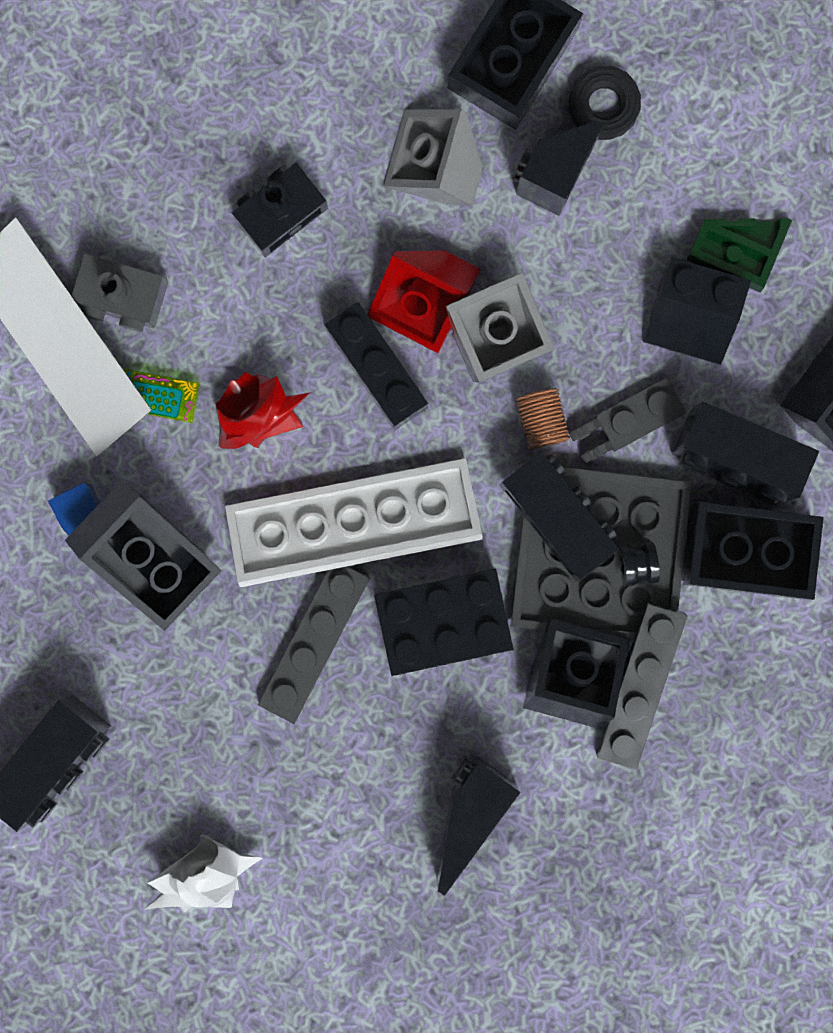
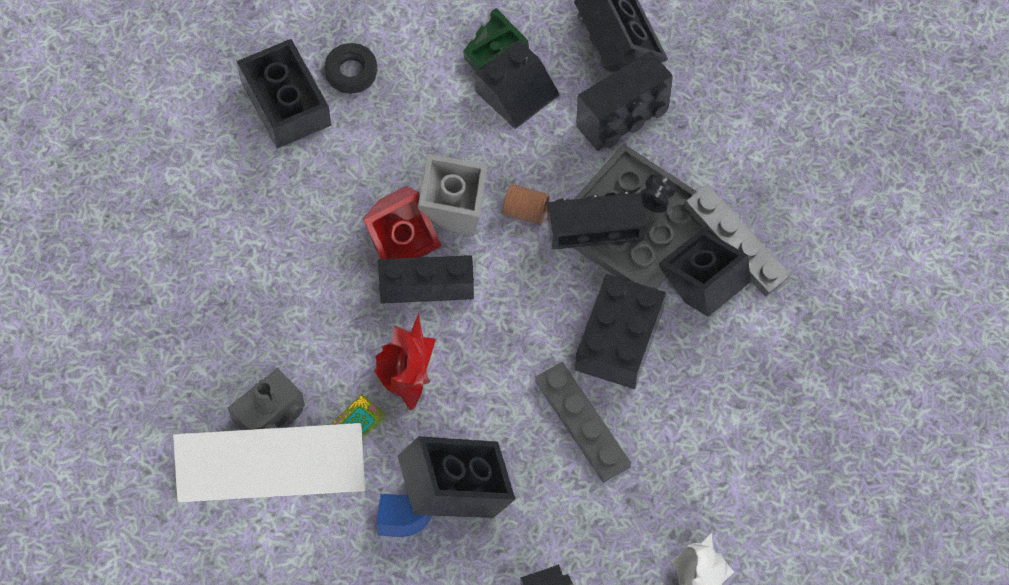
camera: 55 degrees left, 25 degrees down
(279, 208) = (283, 281): black brick -> none
(353, 522) = (518, 351): white plate -> none
(436, 157) = (315, 174): light grey slope -> none
(475, 809) = (762, 381): black slope -> none
(555, 165) = (375, 107): black slope -> none
(632, 418) = (560, 157): dark grey hinge -> none
(753, 550) = (690, 130): black brick -> none

